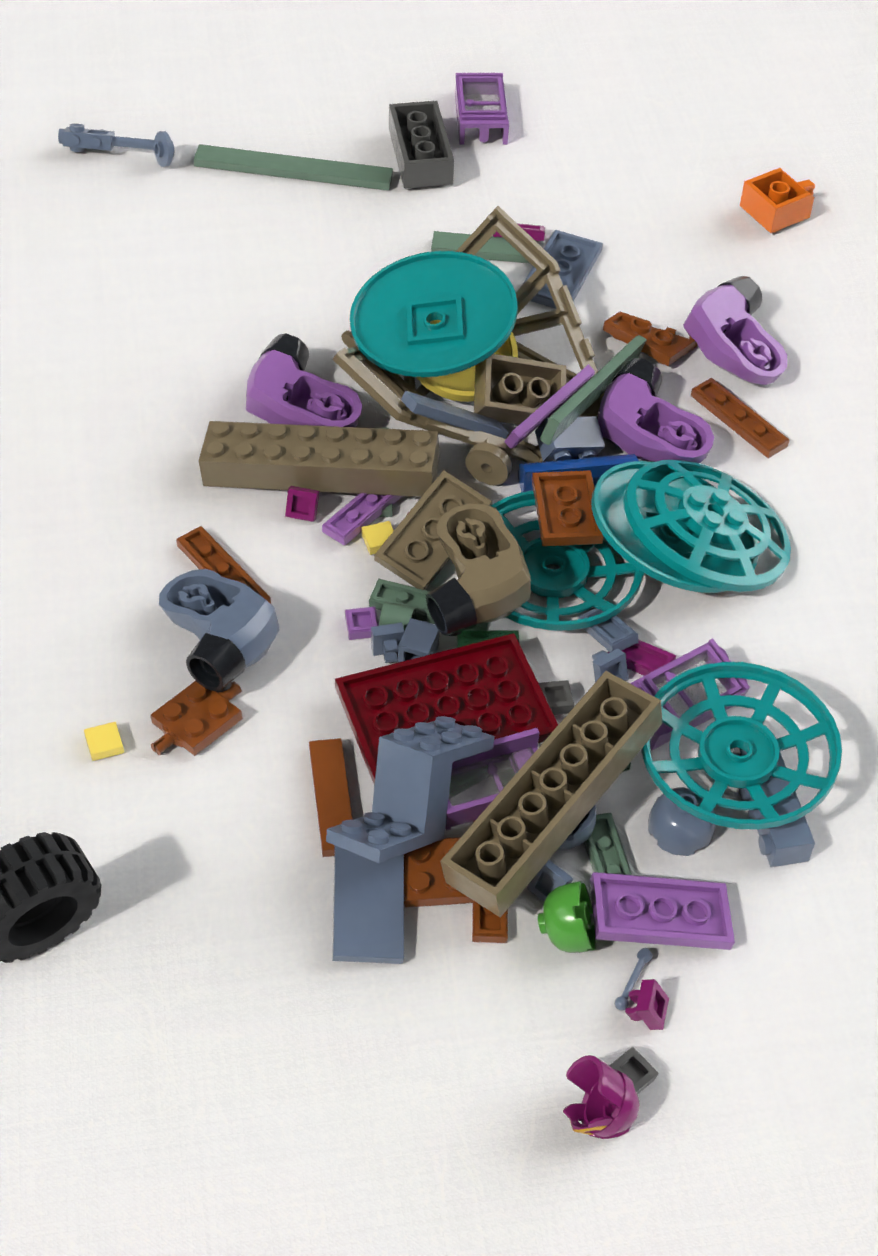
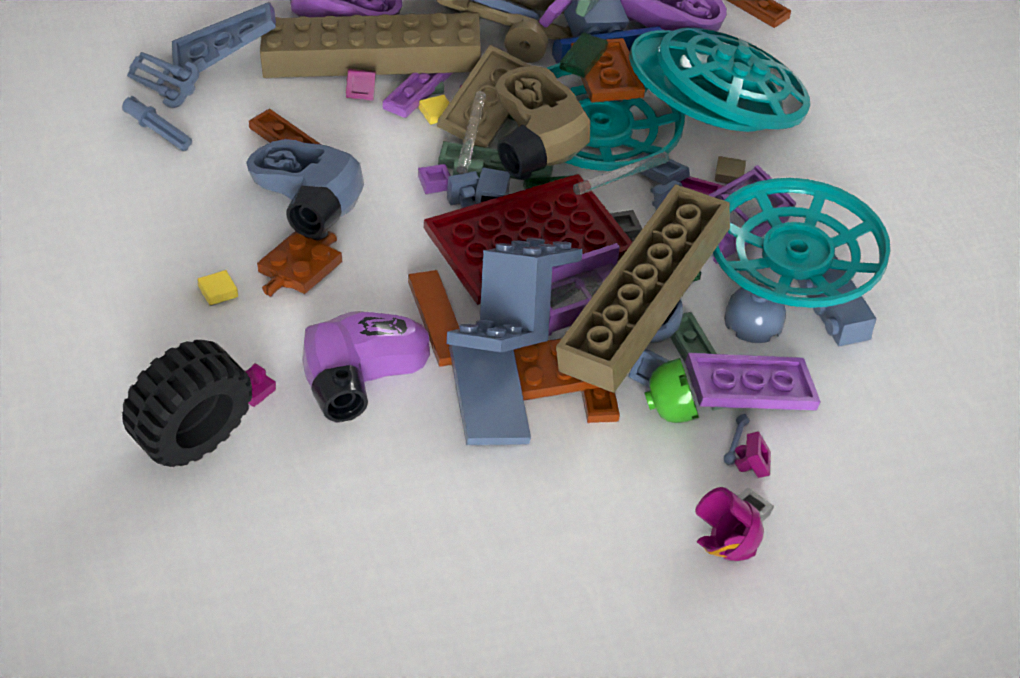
camera: 10 degrees left, 5 degrees down
(71, 528) = (147, 117): none -> sand blue axle
(117, 496) = (172, 97): none -> sand blue piece
(117, 866) = (261, 384): none -> magenta tile
(152, 446) = (222, 38): none -> sand blue wing
(235, 833) = (356, 350): none -> medium lavender piece
(405, 575) = (471, 132): none -> clear bar
(542, 490) = (583, 55): none -> clear green tile
(560, 636) = (620, 173): none -> clear bar
(686, 635) = (729, 169): none -> dark tan tile

